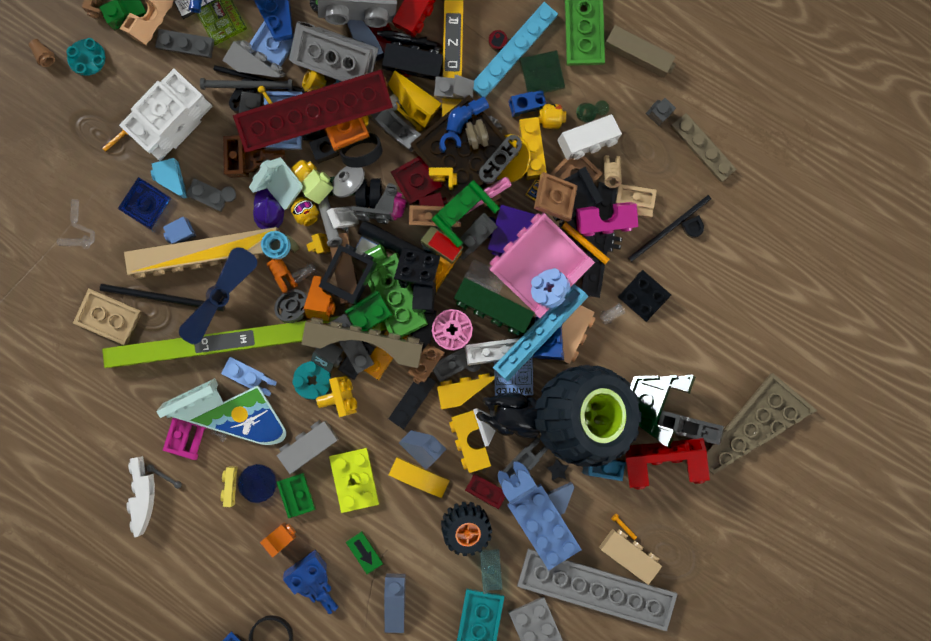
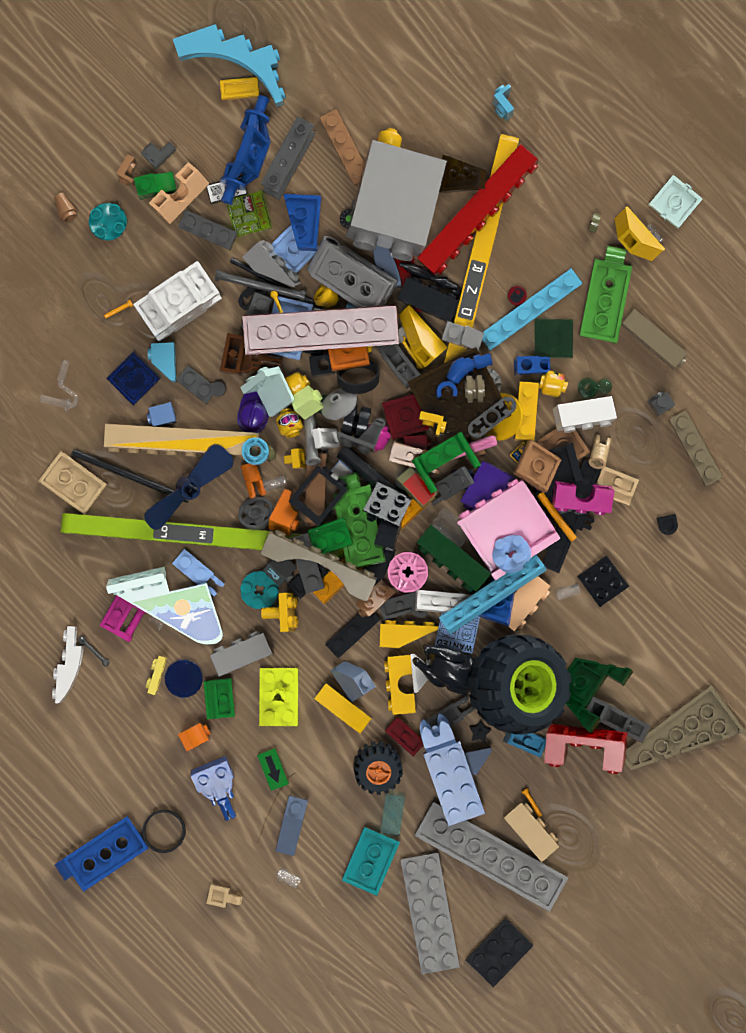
camera: 15 degrees right, 0 degrees up
(668, 229) = (644, 520): black axle -> none

